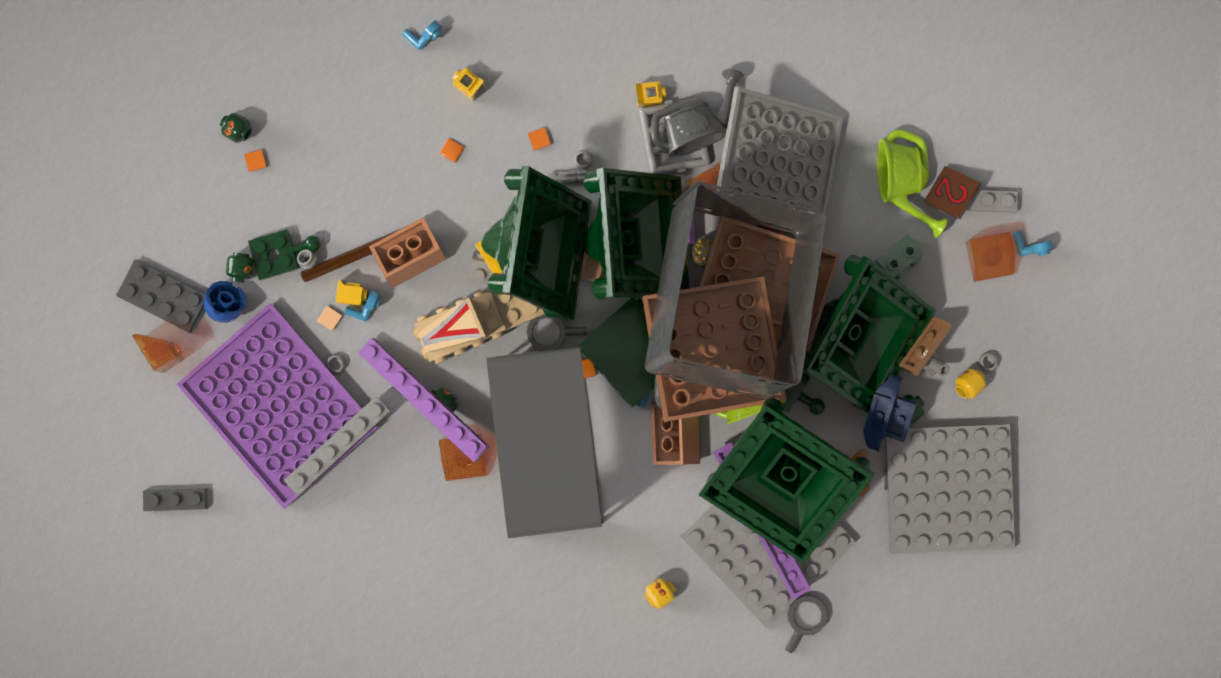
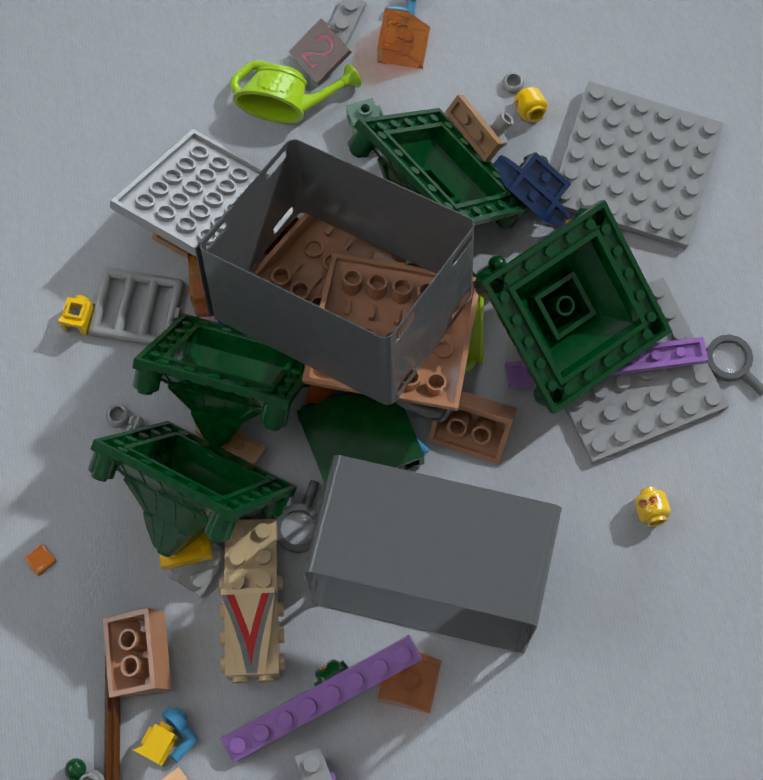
camera: 70 degrees left, 15 degrees down
(539, 139) = (72, 454): orange piece -> none
(691, 122) = (129, 279): dark grey piece -> none

